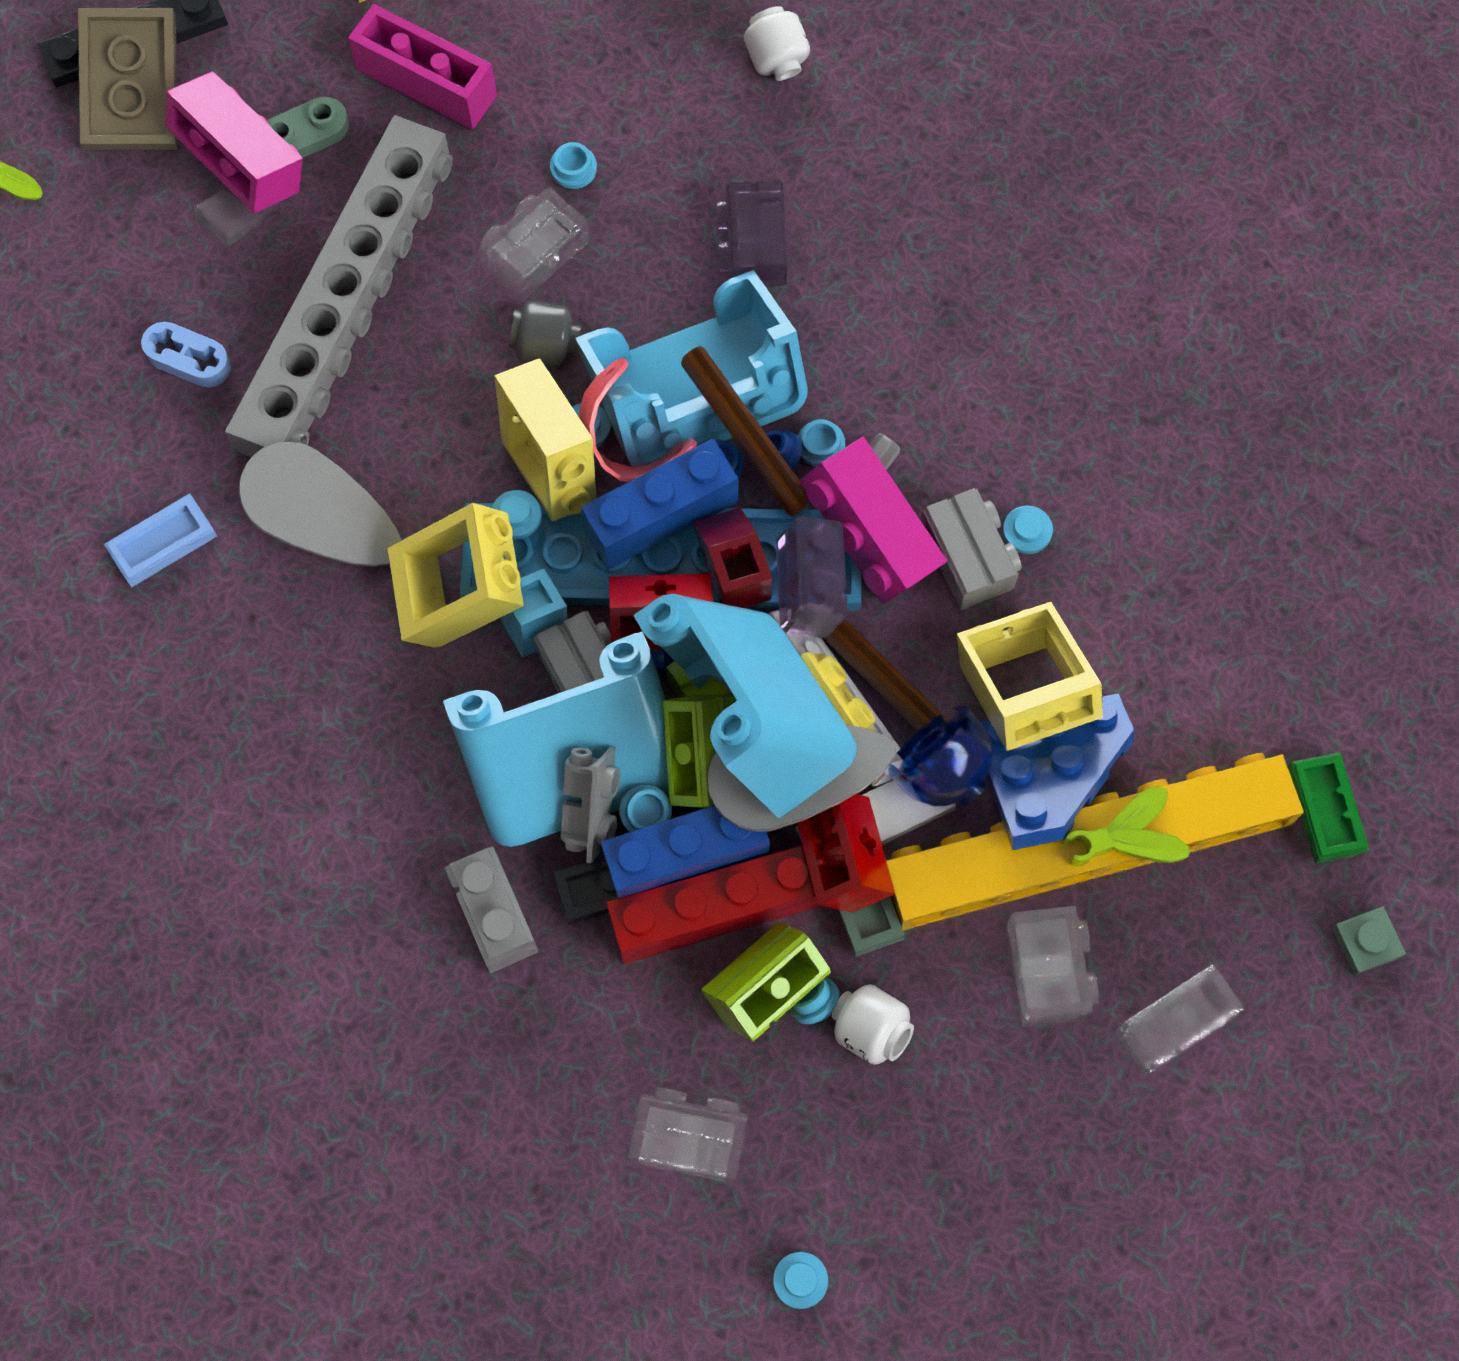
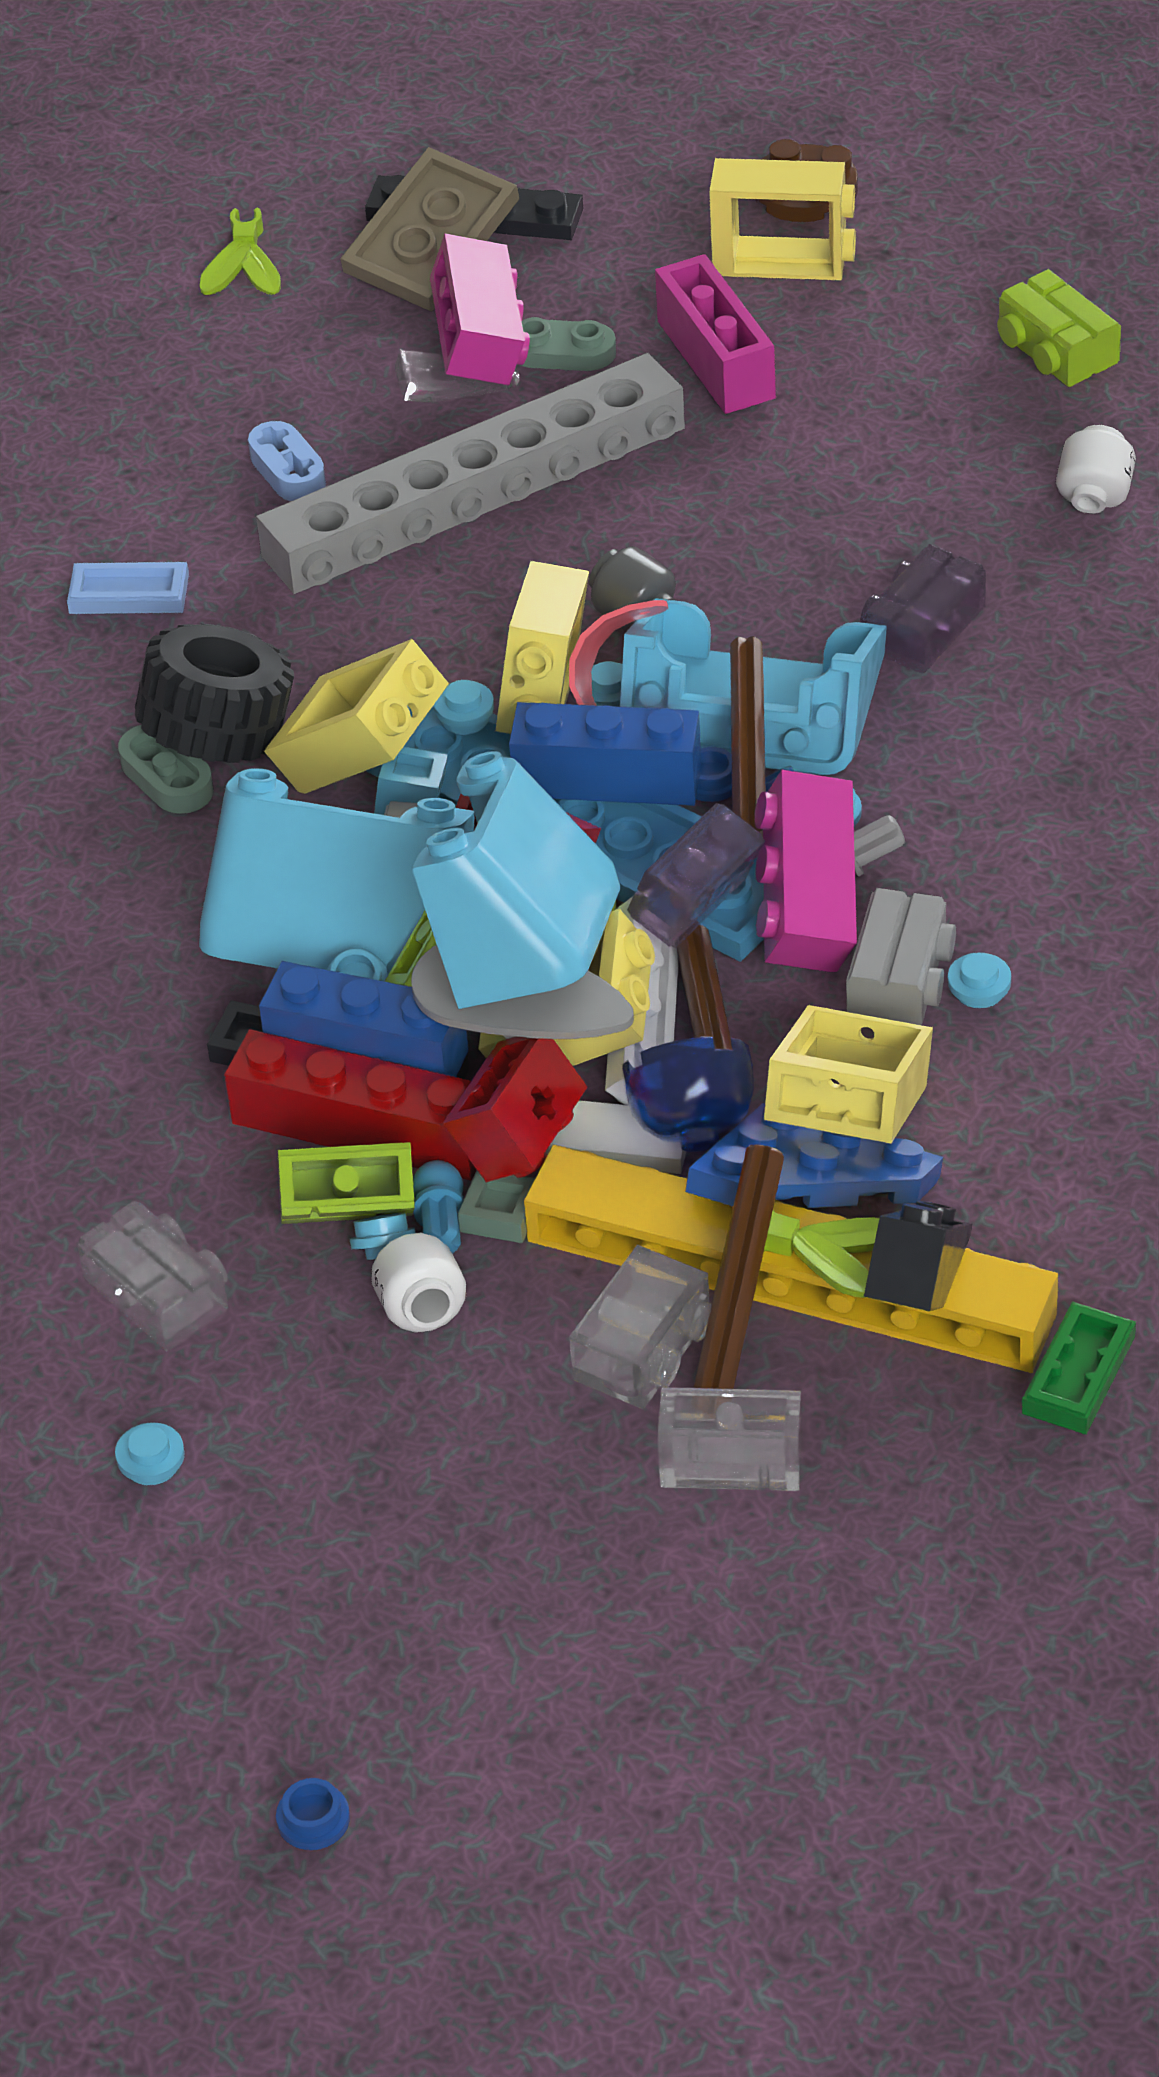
camera: 40 degrees right, 25 degrees down
(315, 506) = (288, 601): light grey shield -> none
(325, 583) = (213, 692): none -> black tyre
(332, 693) = (171, 779): none -> sand green plate
(491, 909) = (145, 999): light grey brick -> none
(533, 242) = (695, 518): clear brick -> none
(573, 166) = (795, 479): medium azure plate -> none
(597, 784) = (320, 916): light grey hinge -> none
(734, 559) = (634, 828): dark red slope -> none
(834, 949) = (438, 1201): none -> dark azure axle
(1099, 896) = (739, 1268): none -> reddish brown axle
(1209, 810) = (917, 1255): none -> black slope
(1368, 940) = (1016, 1508): sand green plate -> none

